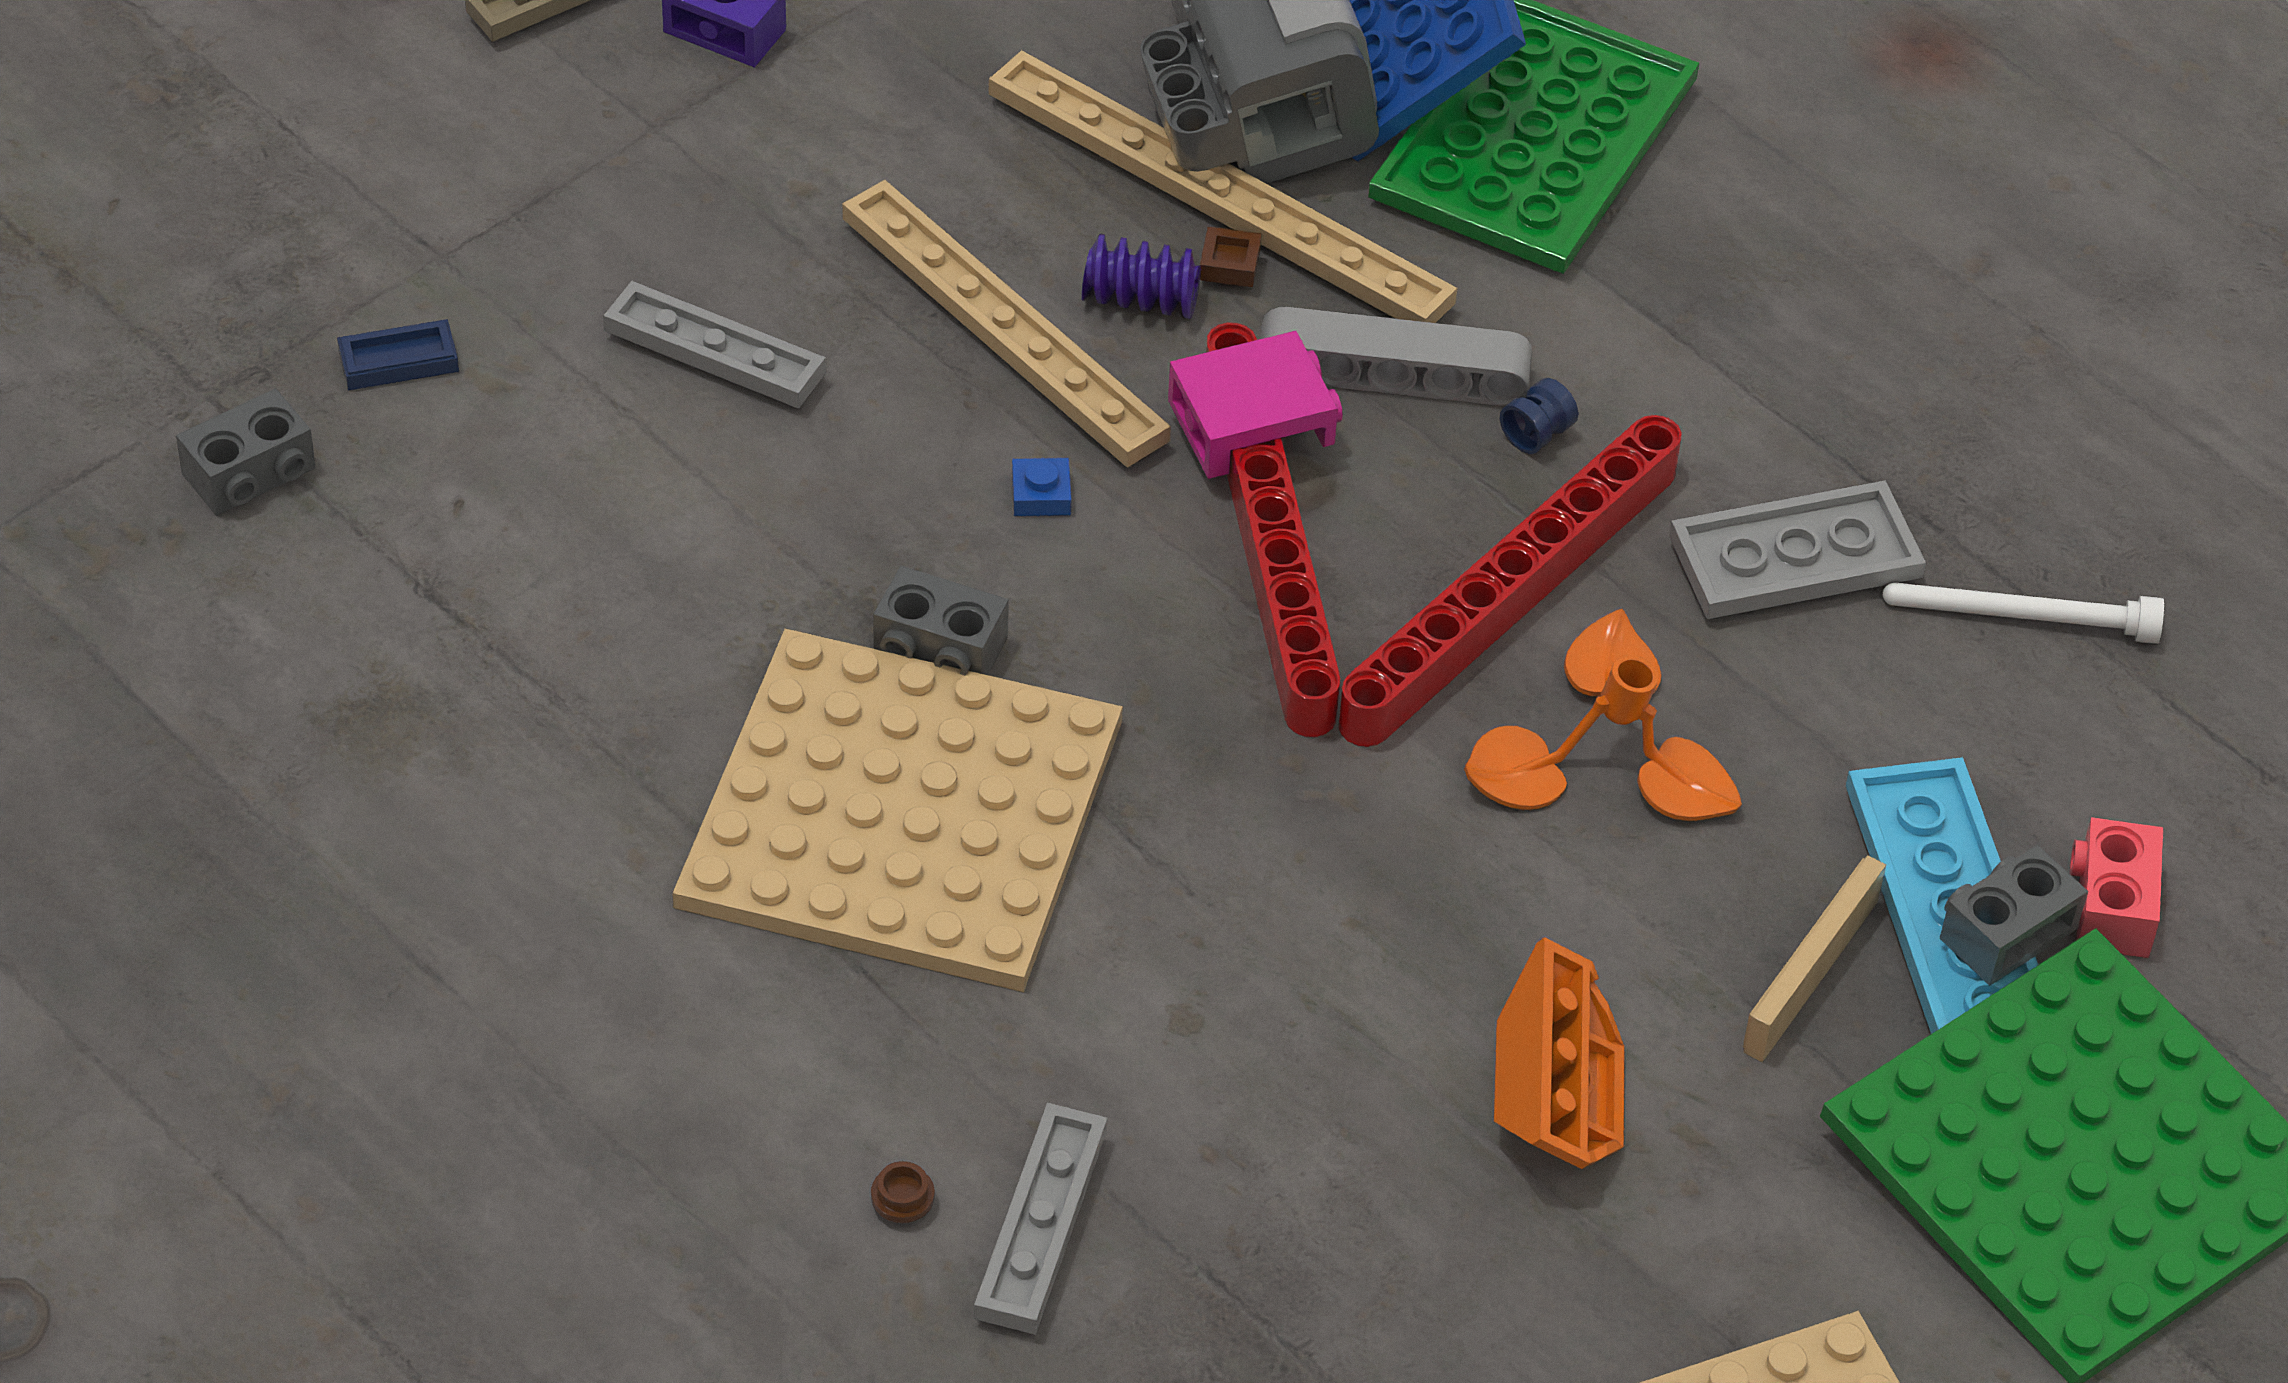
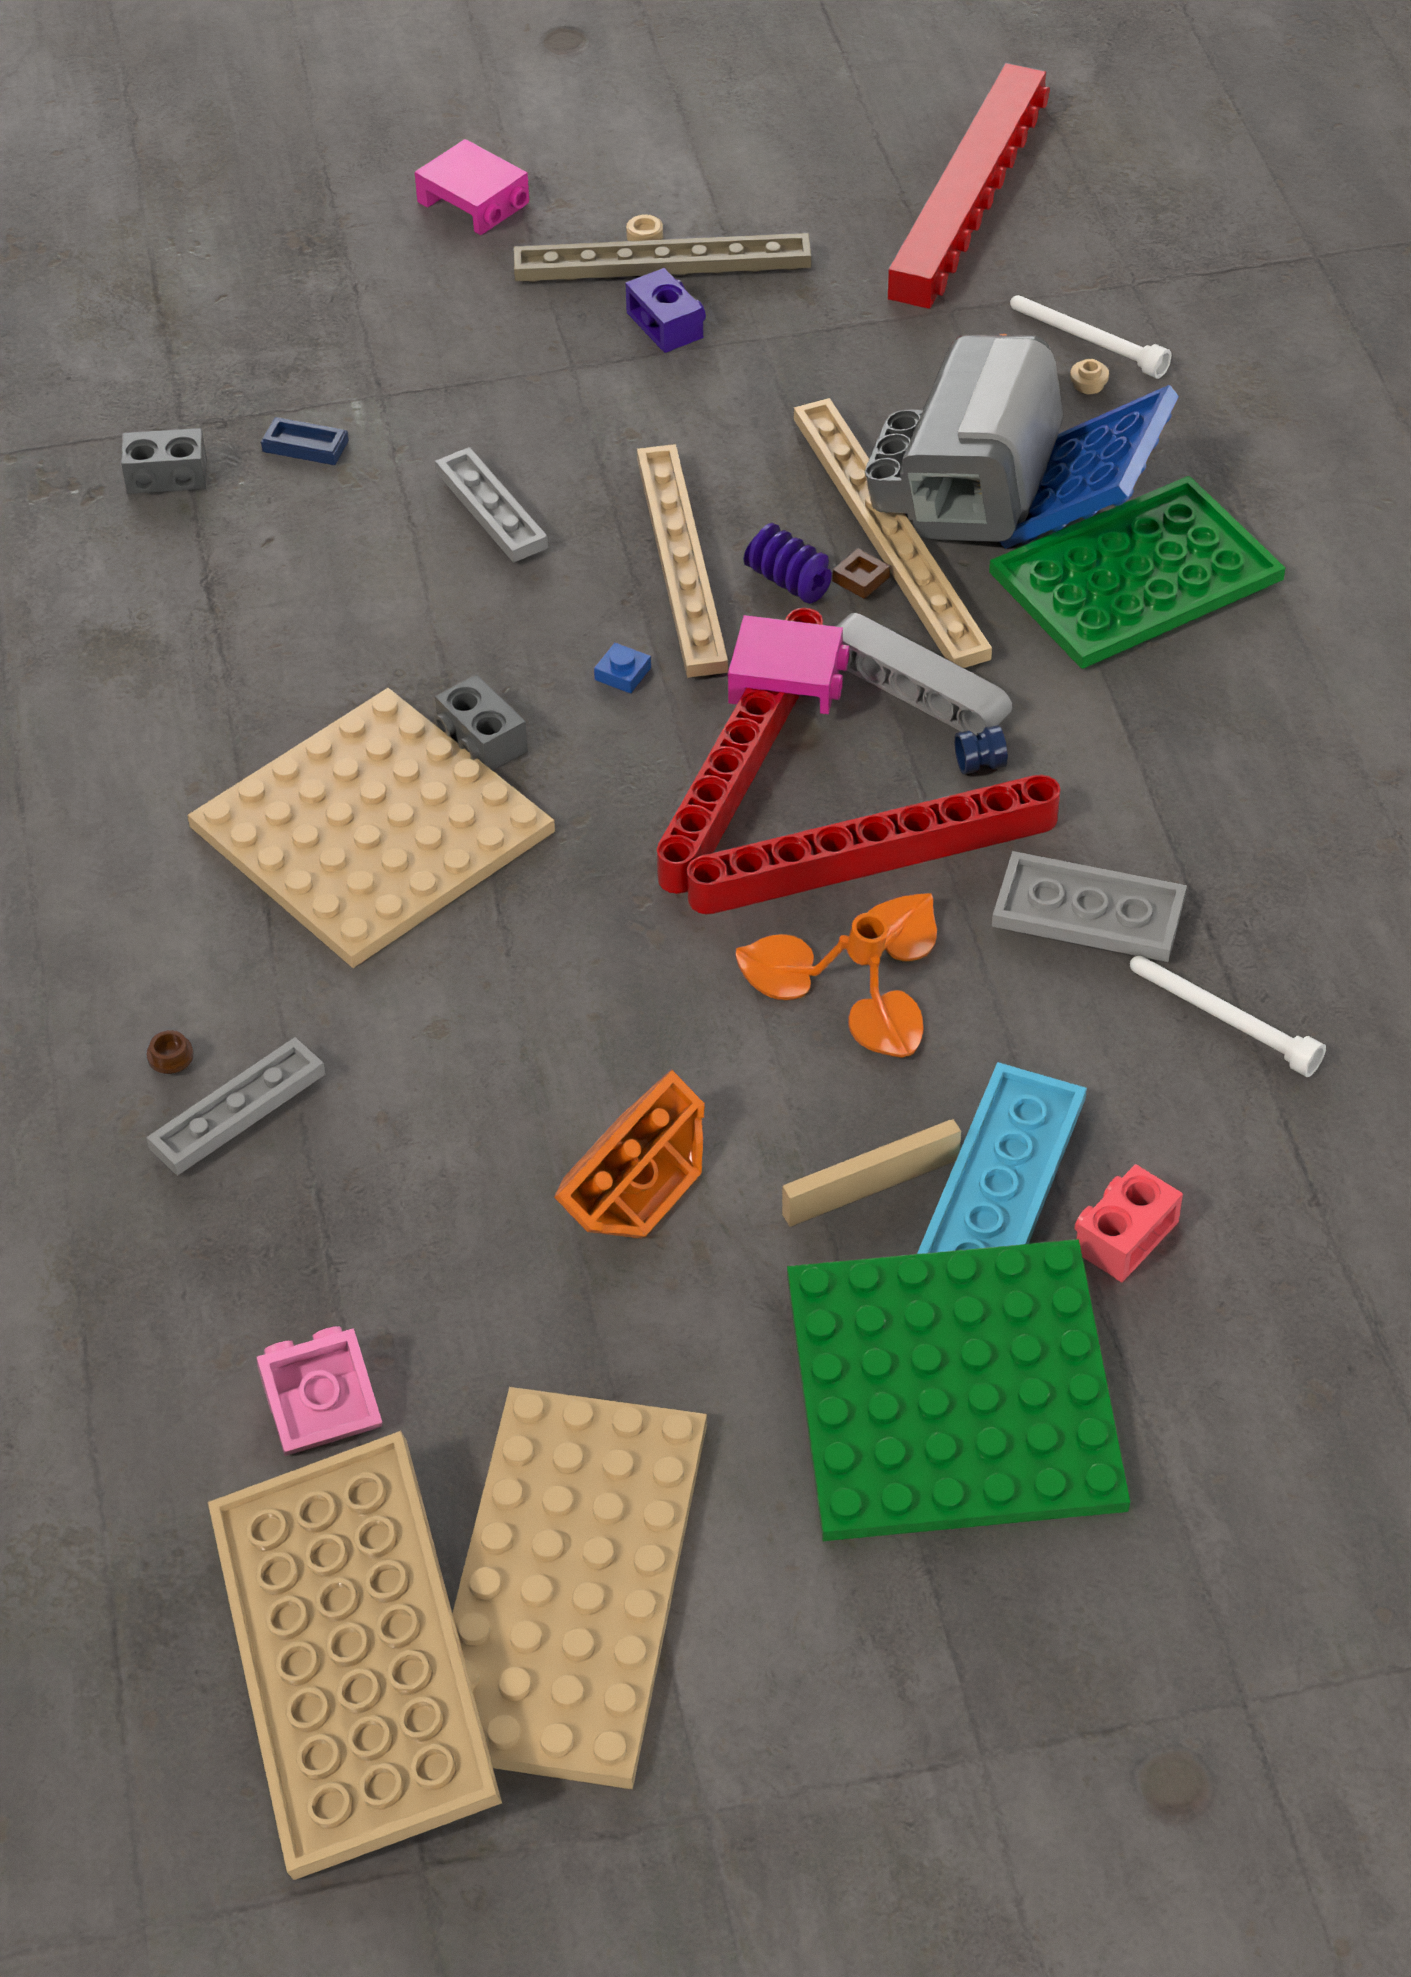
camera: 35 degrees right, 0 degrees up
(2012, 914) = (1010, 1203): dark grey brick -> none

